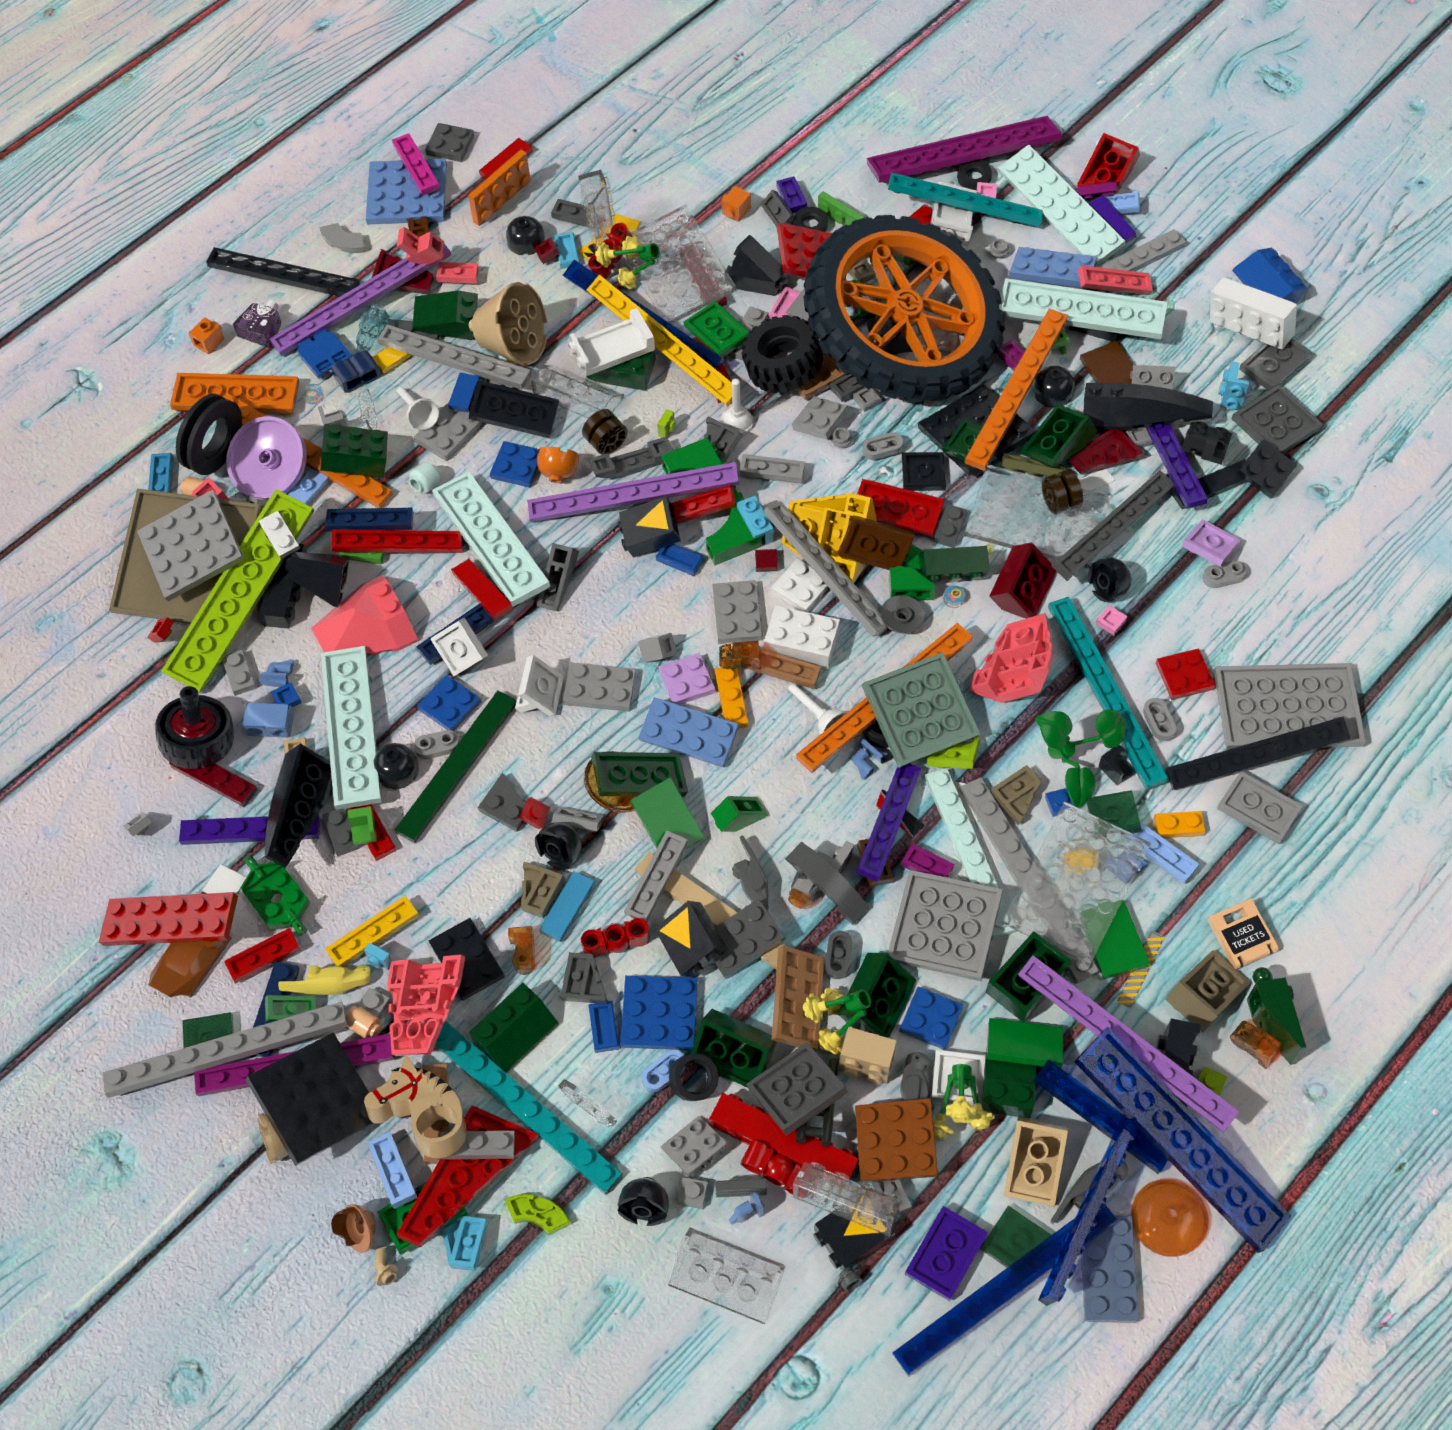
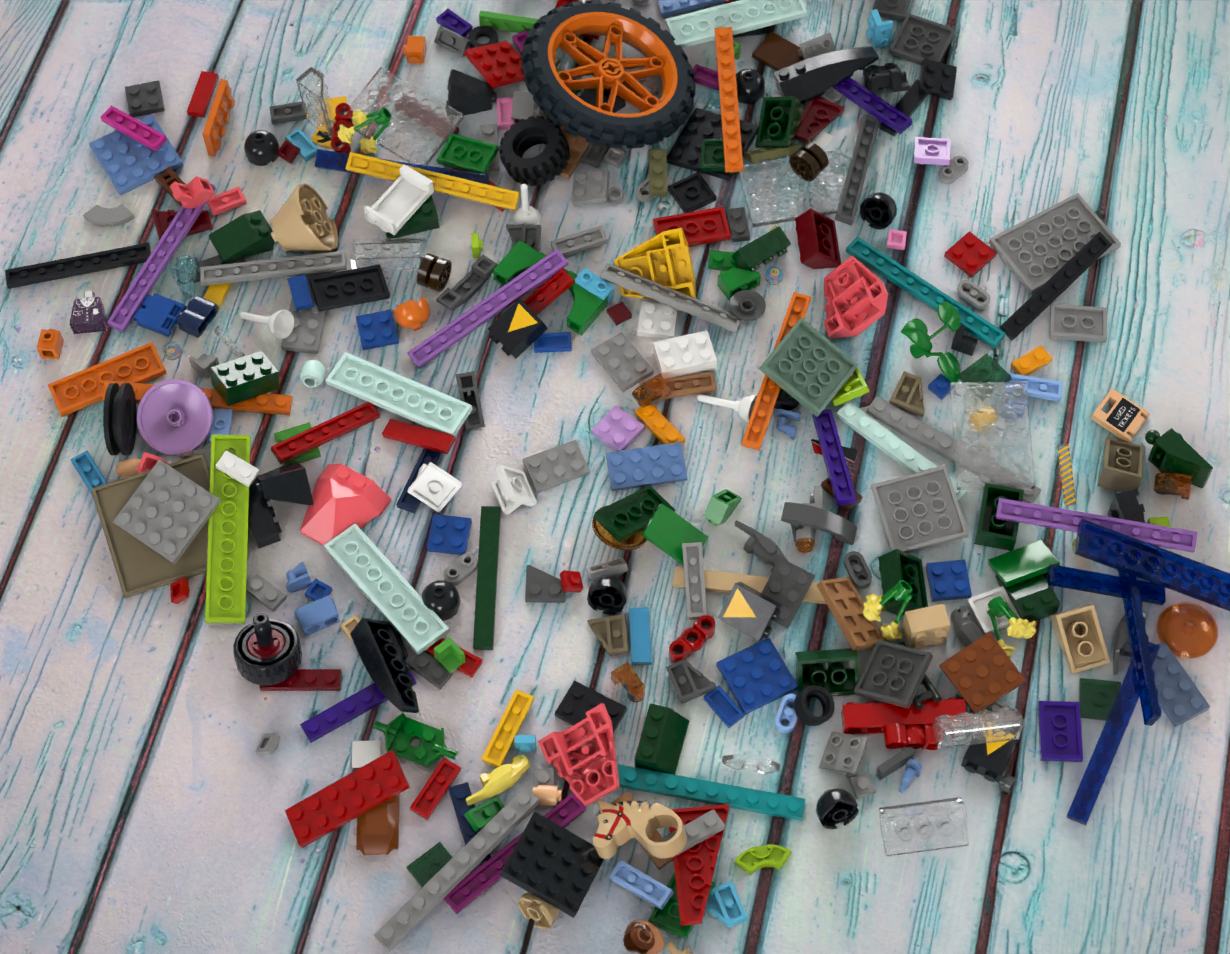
camera: 30 degrees left, 0 degrees up
(370, 519) = (294, 424): dark blue plate -> none
(657, 647) = (581, 416): light grey panel -> none
(875, 543) = (698, 261): reddish brown tile -> none
(897, 433) = (658, 173): none -> olive plate
(926, 862) = (876, 474): magenta plate -> none
(1121, 947) = (1048, 467): green tile -> none

